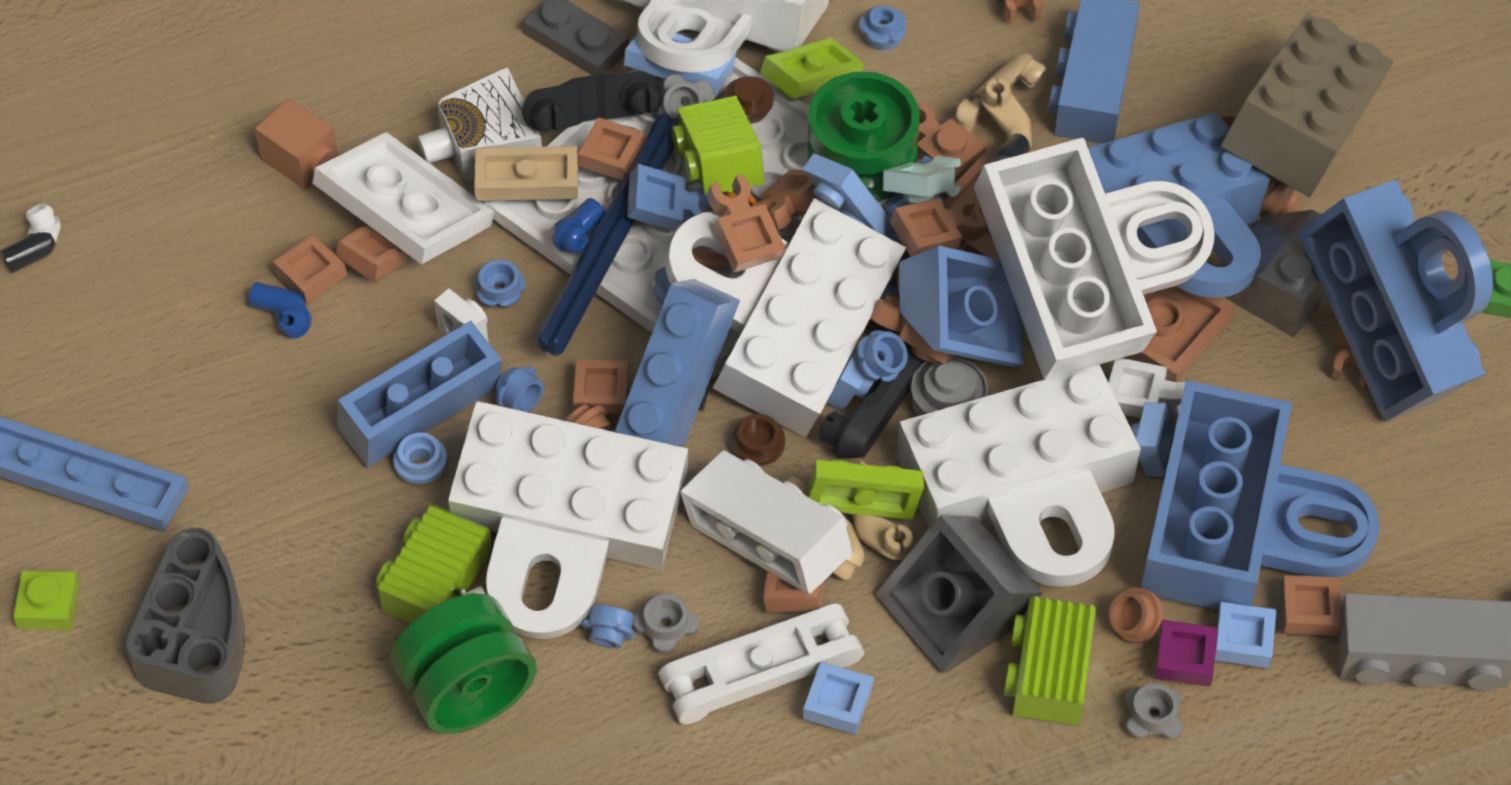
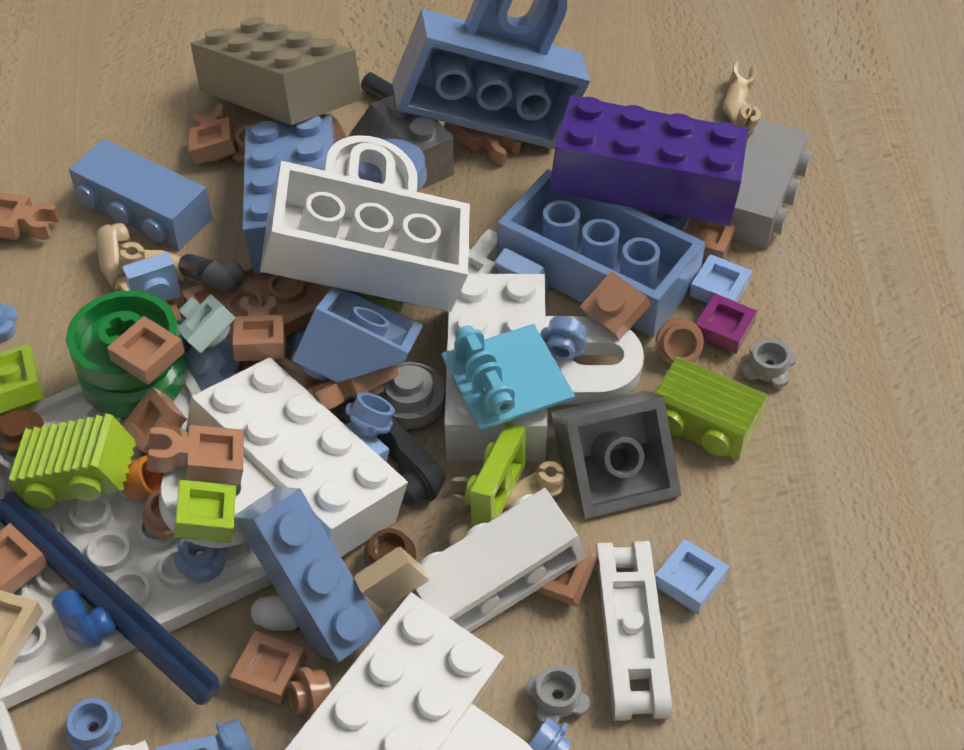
camera: 70 degrees left, 5 degrees down
(661, 198) = (101, 532): medium blue plate -> none
(680, 251) = (205, 511): none -> lime plate
(702, 432) = (391, 578): none -> tan tile
(837, 136) = (145, 350): none -> nougat plate
(845, 192) = (192, 371): light blue plate -> none
(966, 120) = (153, 276): none -> light blue plate
(969, 446) = (505, 374): none -> medium azure hinge
(1051, 488) = (565, 337): none -> medium blue plate
(1119, 521) = (615, 305): none -> nougat plate
(1214, 93) = (212, 137): none -> nougat plate
(1338, 489) = (649, 160): none -> dark purple brick

